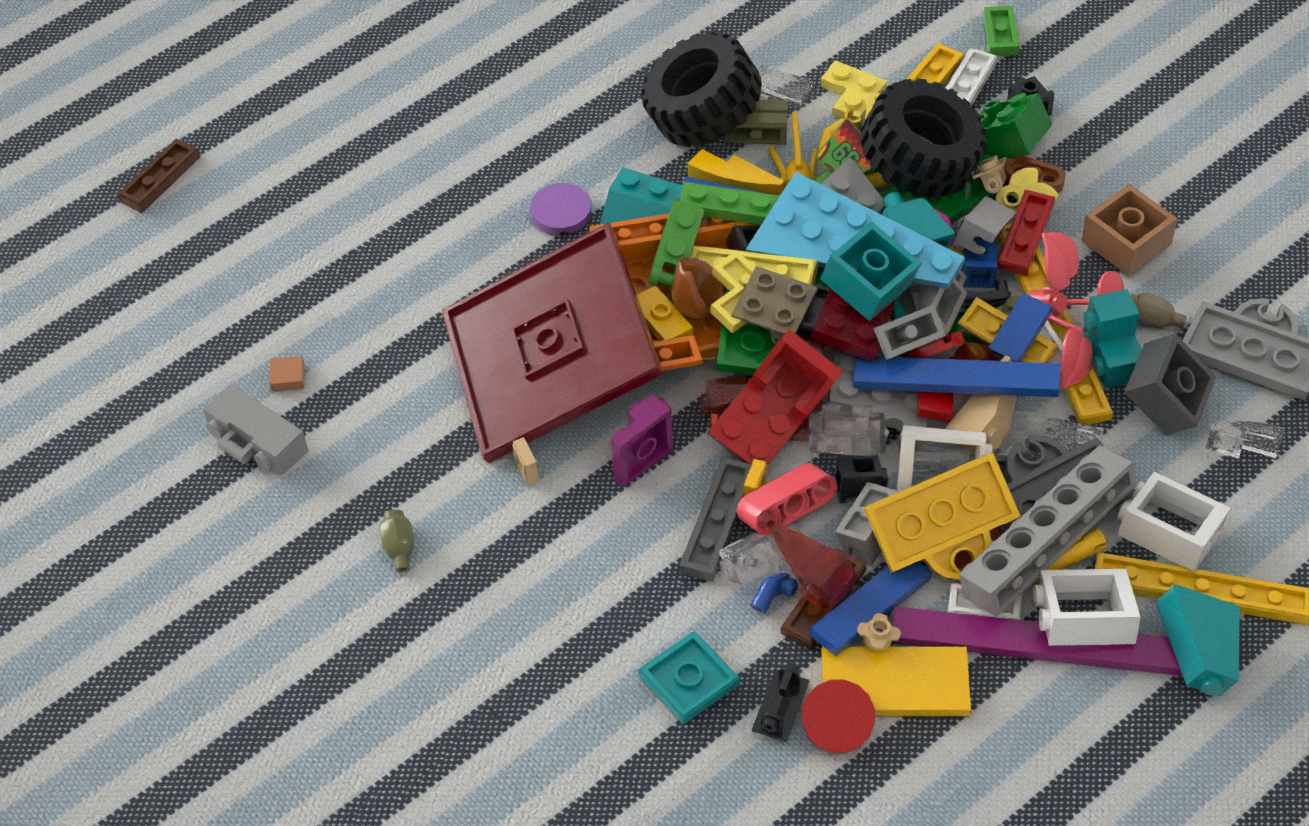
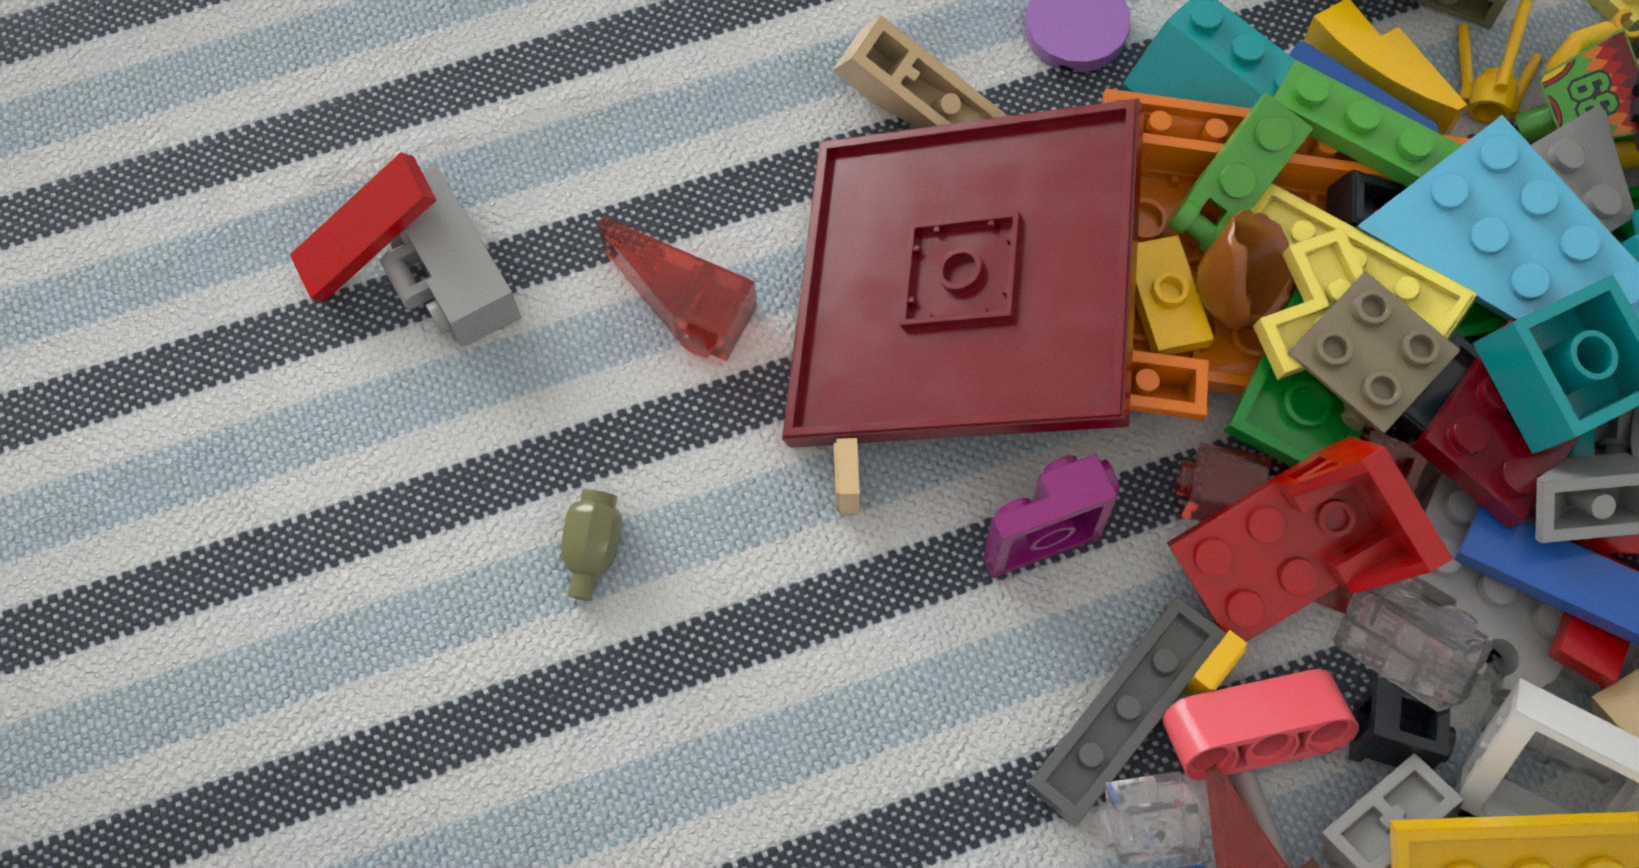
camera: 20 degrees right, 15 degrees up
(202, 428) = (362, 227): none -> red tile
(286, 373) = (539, 168): nougat tile -> none
(397, 404) = (692, 297): none -> clear red slope
(475, 261) = (908, 79): none -> tan slope

